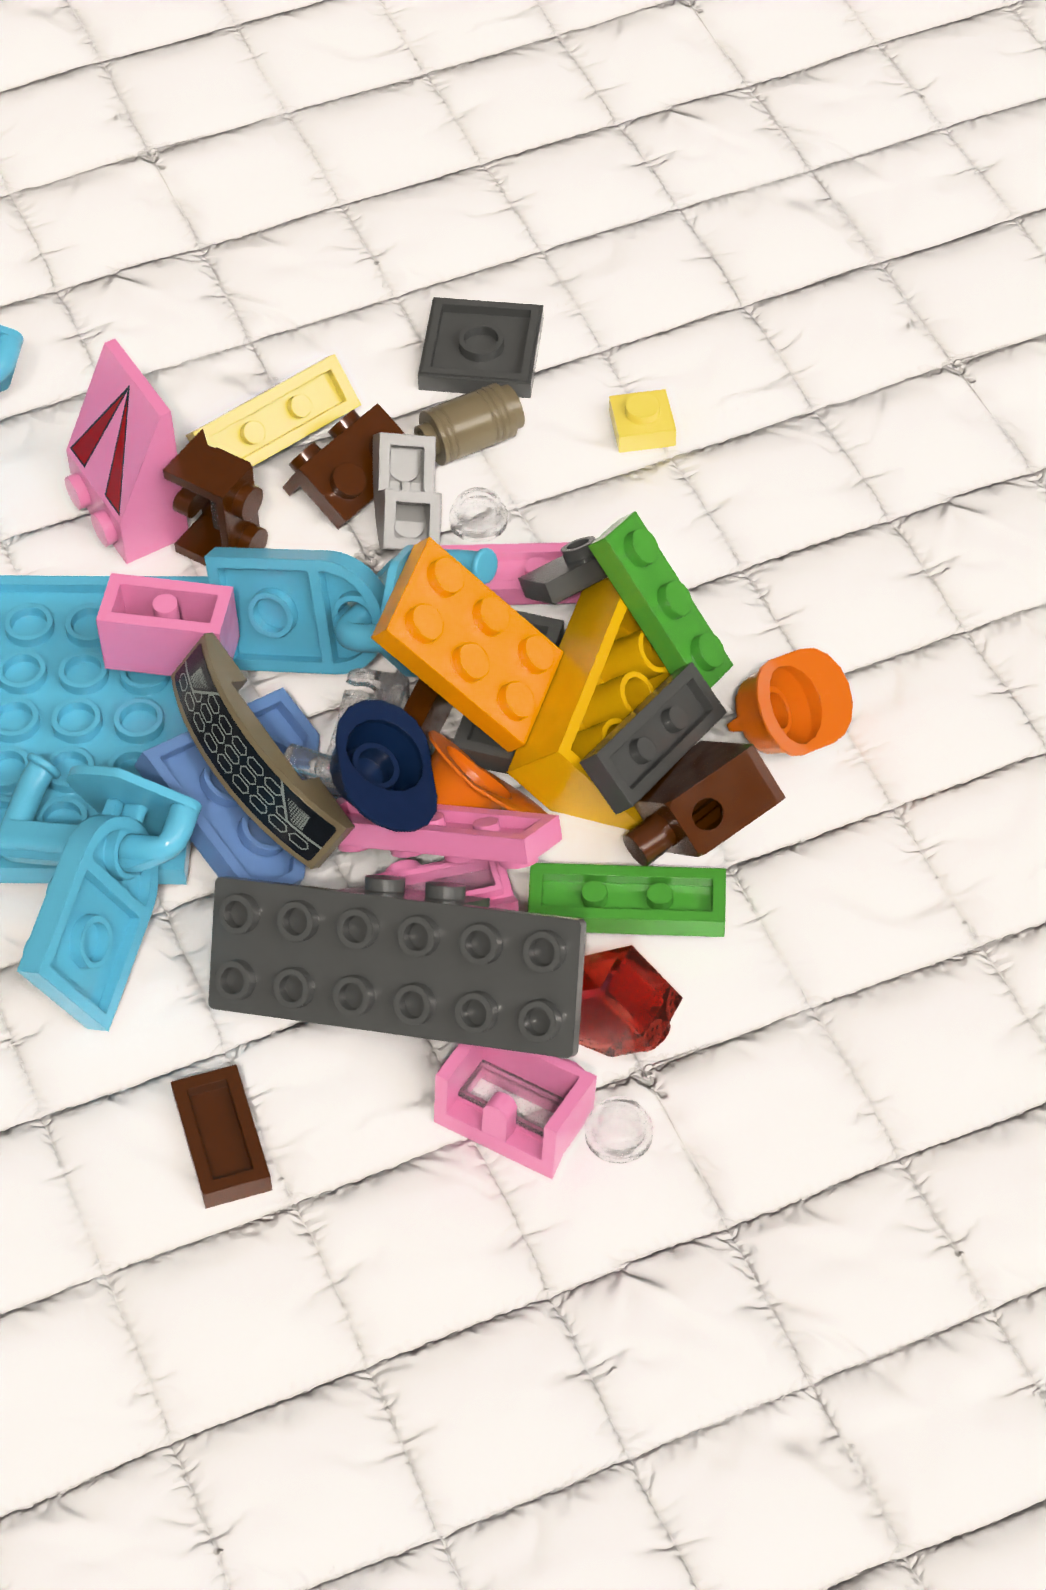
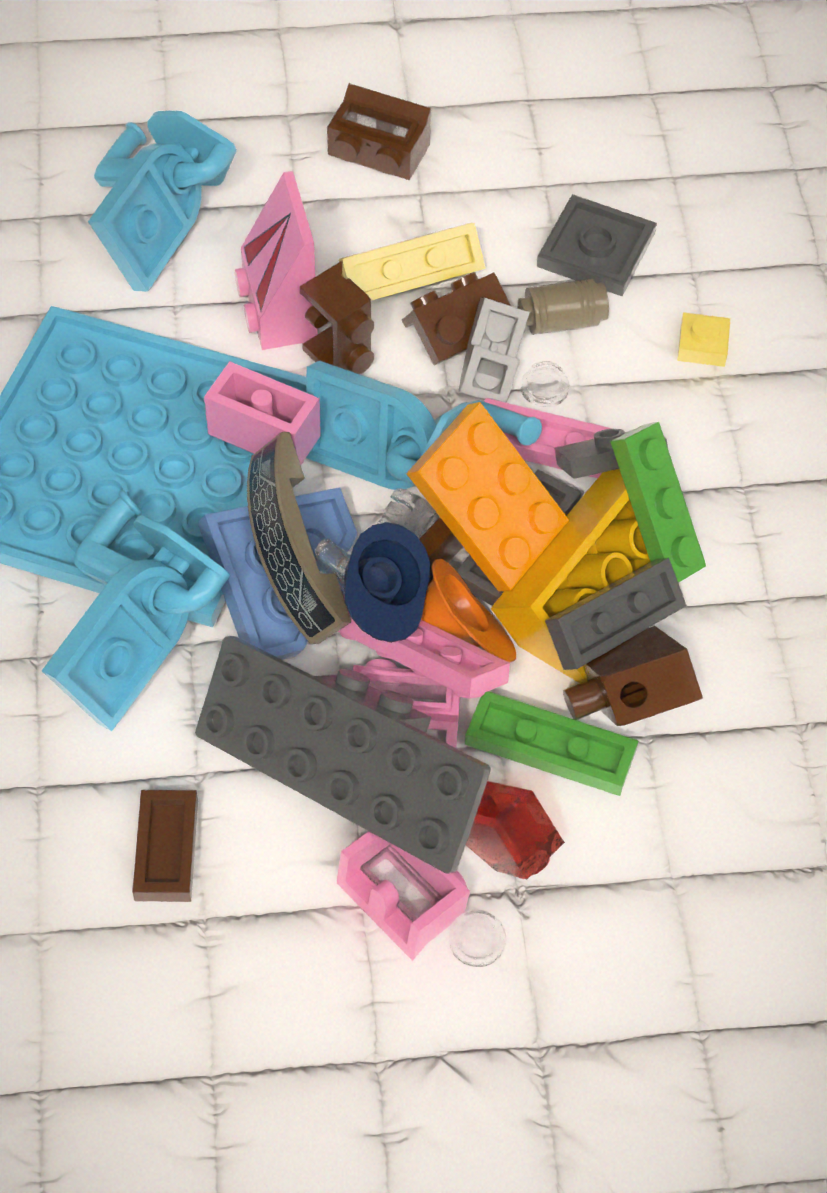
camera: 15 degrees right, 5 degrees up
(180, 281) = (379, 132): none -> reddish brown window
(794, 704) = (743, 615): orange piece -> none

